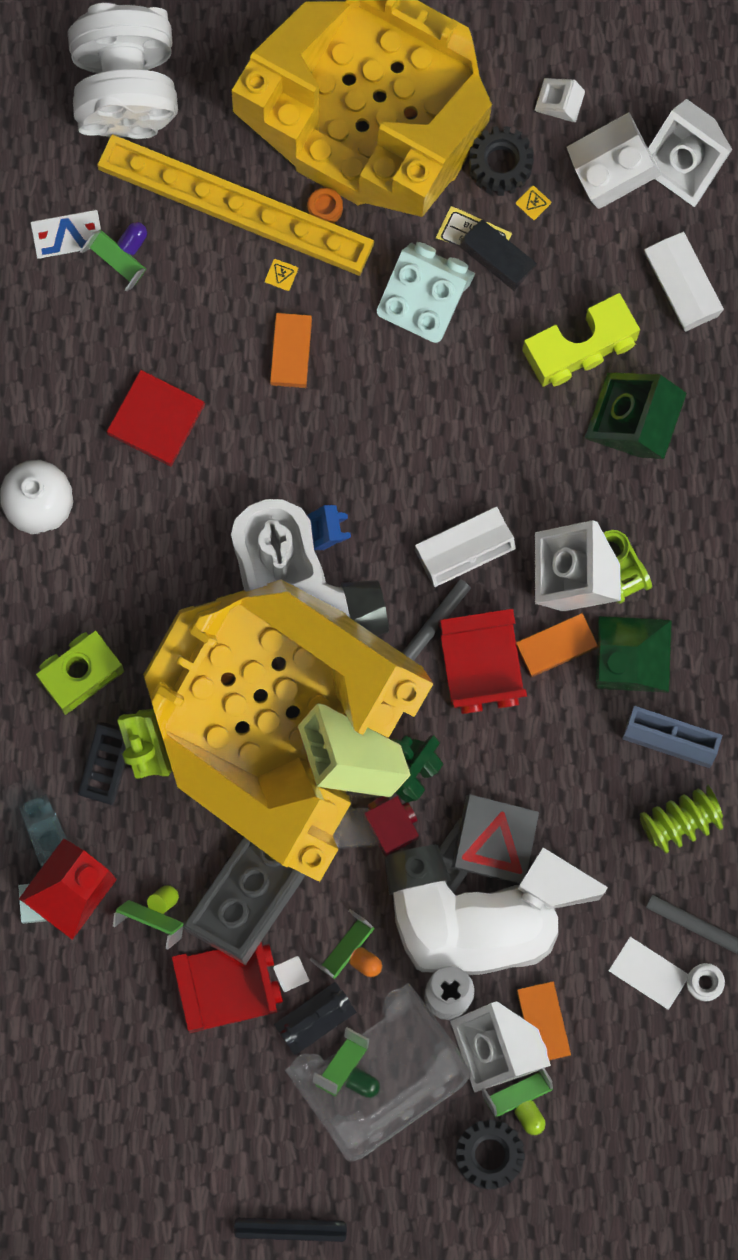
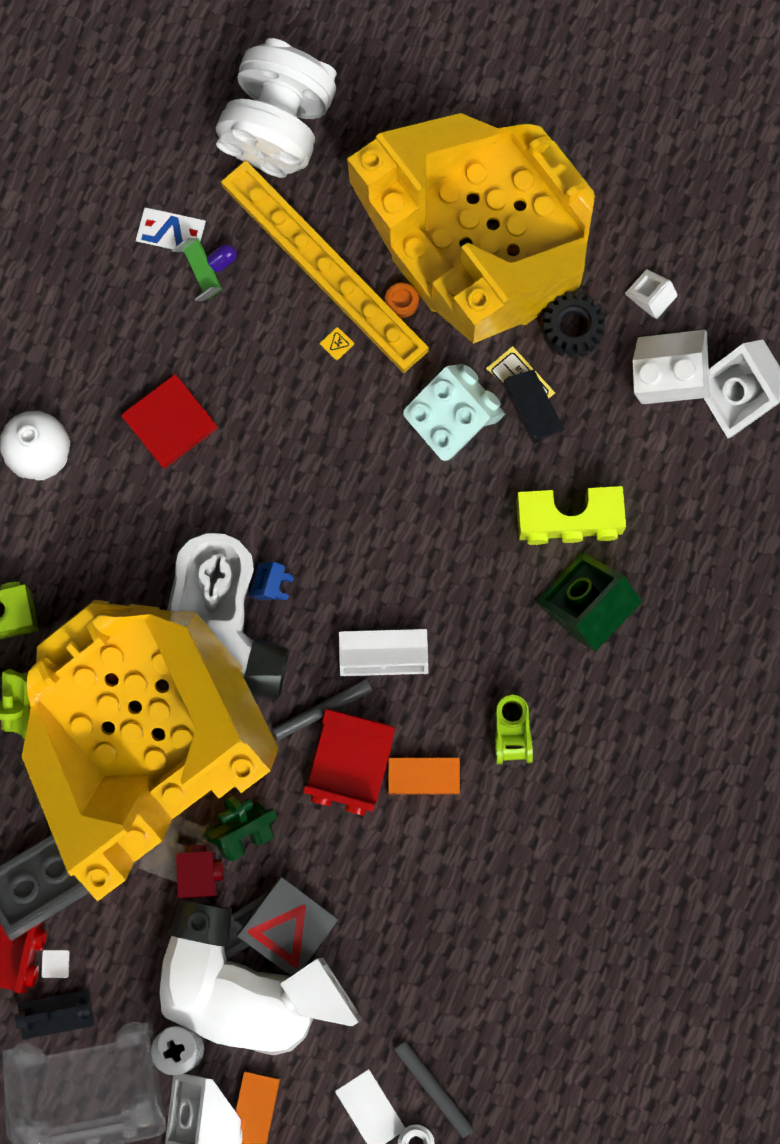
camera: 30 degrees right, 0 degrees up
(291, 350) = (313, 413): orange tile -> none
(344, 1068) = (57, 1073): piece -> none
(348, 759) = (187, 812): yellowish green slope -> none
(350, 950) = (114, 968): piece -> none
(533, 202) = (586, 374): yellow sticker -> none
(575, 567) = (468, 715): white slope -> none
(633, 654) = (489, 814): dark green slope -> none
(672, 737) = (482, 912): sand blue piece -> none
(682, 819) = (462, 987): lime piece -> none
(684, 281) = (687, 500): white piece -> none

